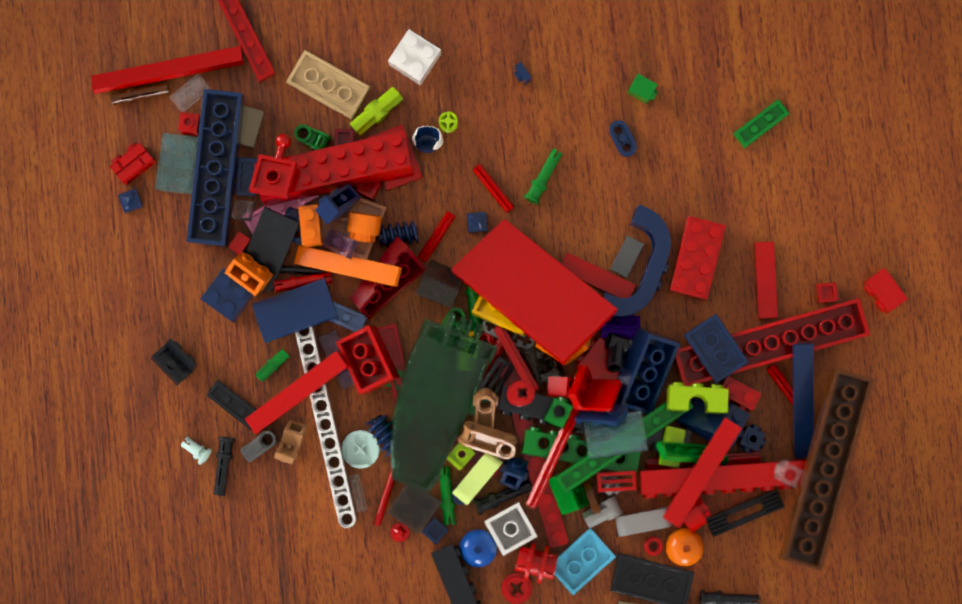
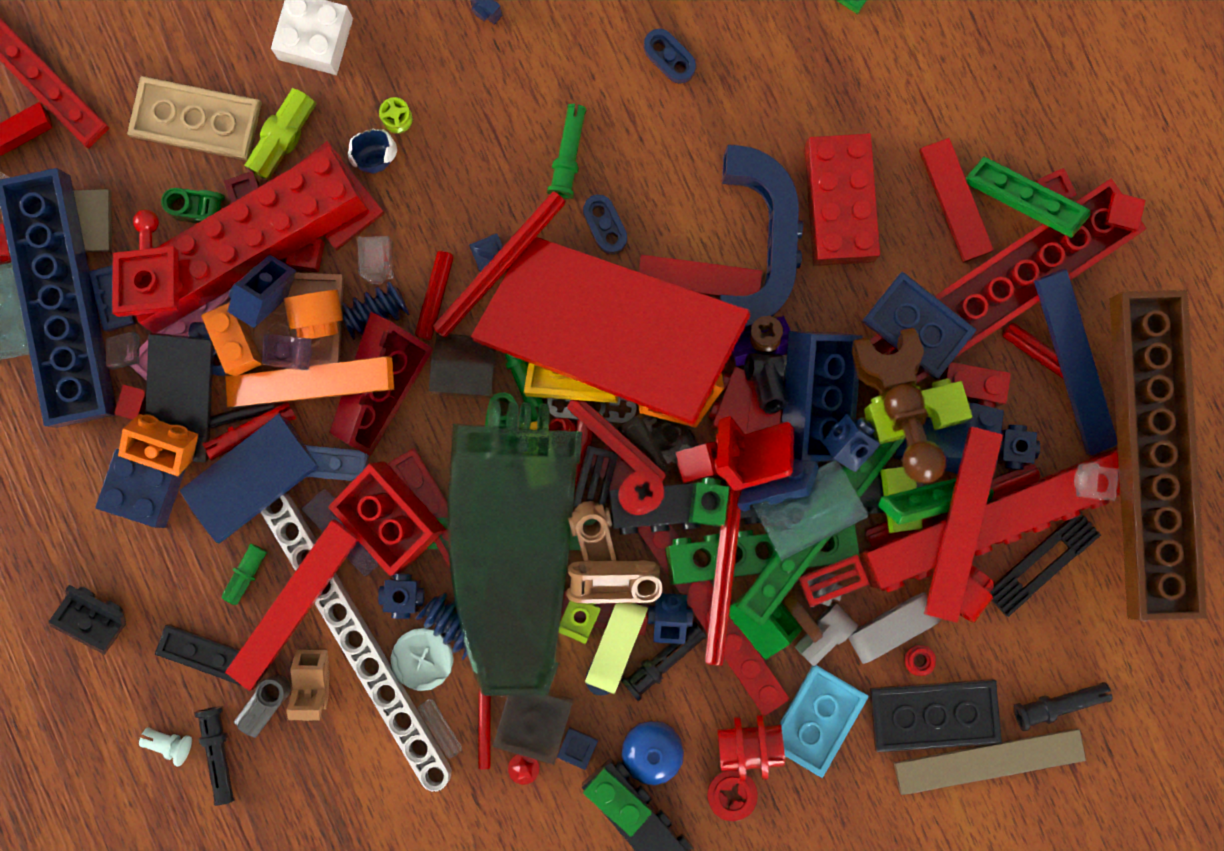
camera: 20 degrees left, 0 degrees up
(368, 411) = (413, 596): none -> dark blue brick
(409, 204) = (375, 259): none -> clear brick
(446, 495) = (578, 689): green pin -> none
(448, 568) = (617, 802): none -> green plate
(481, 231) = (499, 264): none -> red axle
(493, 188) = (495, 192): red axle -> none
(510, 529) = (693, 708): white brick -> none
(551, 227) = (605, 225): none -> dark blue plate
(621, 328) = (766, 341): none -> reddish brown wheel
(626, 256) = (734, 232): dark grey tile -> none
(652, 403) = (851, 442): none -> dark blue brick
(684, 547) = (968, 647): orange cylinder -> none
(688, 390) = (903, 402): none -> reddish brown piece
(806, 292) = (1028, 197): none -> green tile
(860, 321) = (1125, 212): none -> red tile
(884, 291) = (1141, 158): red brick -> none

